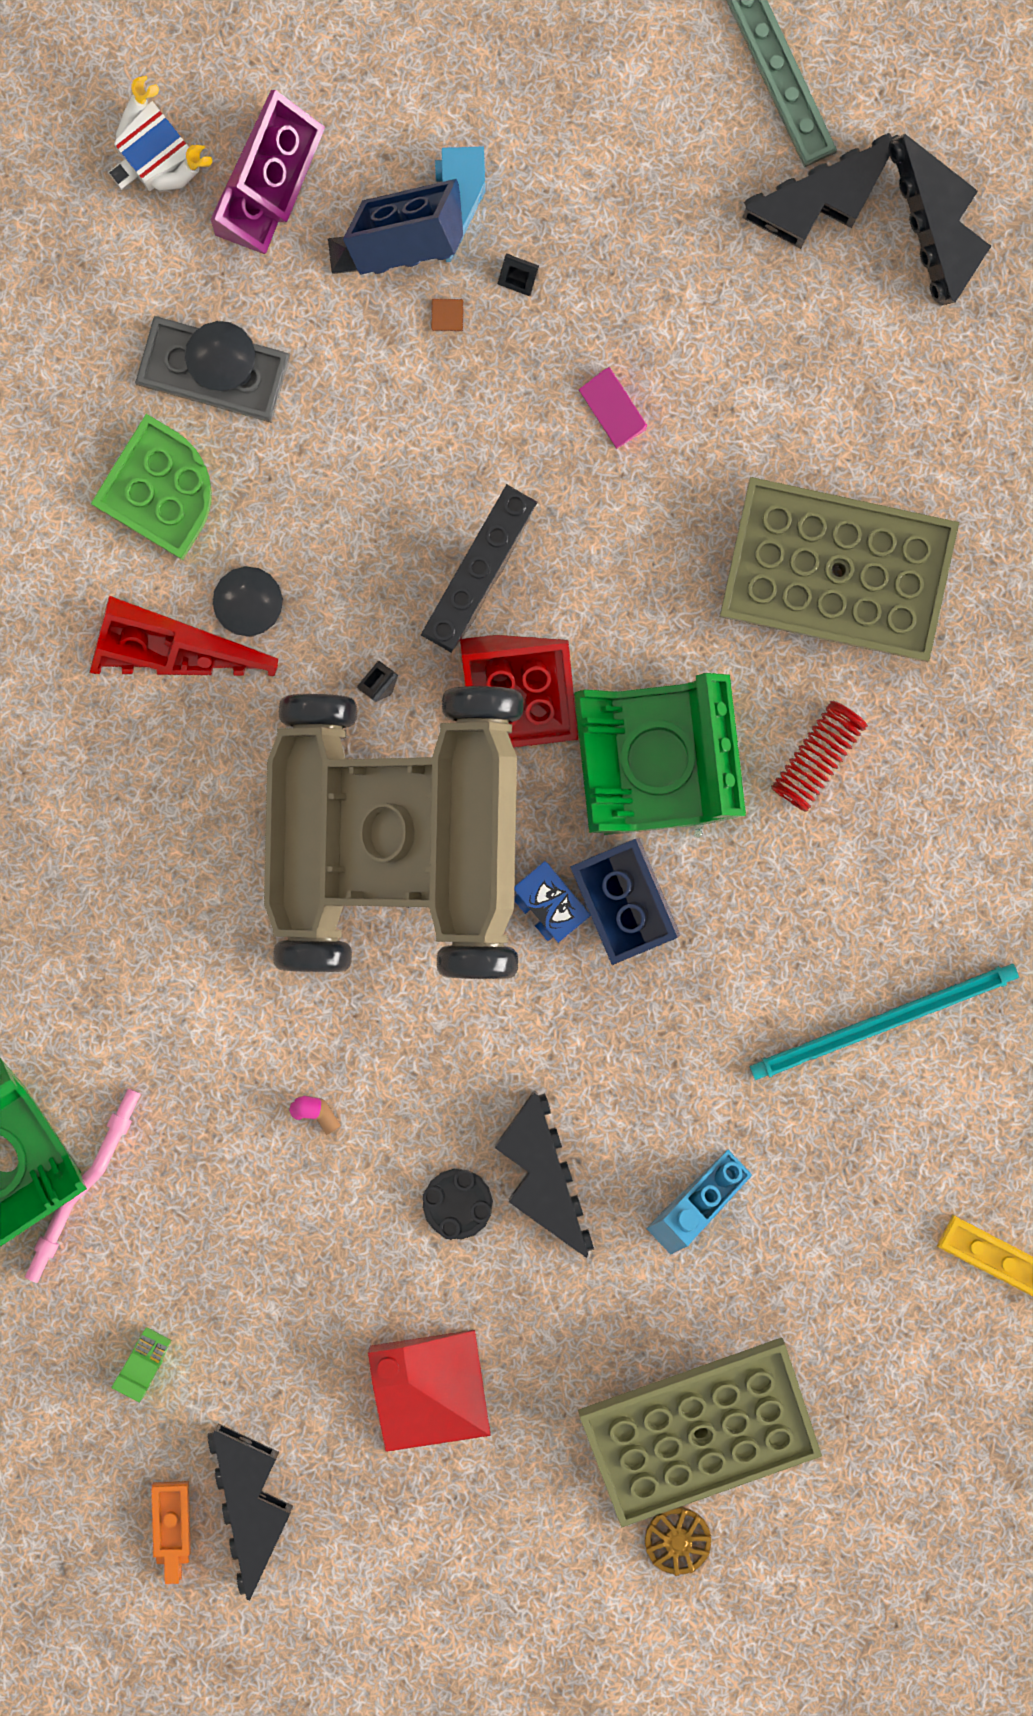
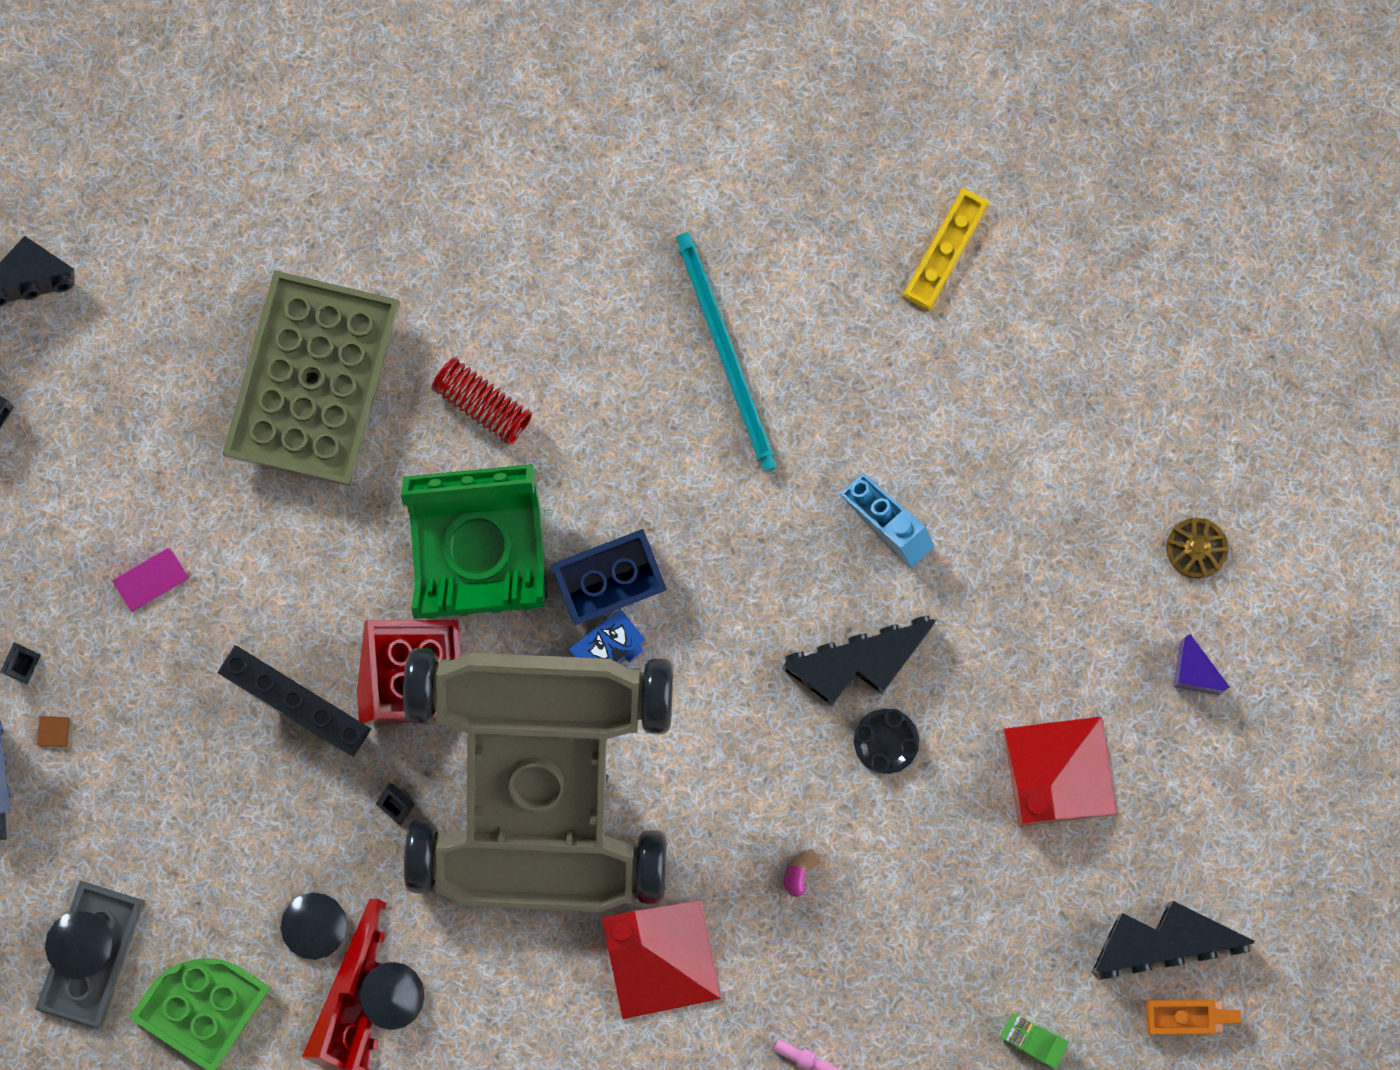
camera: 90 degrees left, 10 degrees down
(174, 686) = (391, 995): none -> black dish
(221, 968) = (661, 958): none -> red slope
(542, 1538) = (1196, 670): none -> dark purple slope
(700, 1432) = (1096, 522): olive piece -> none

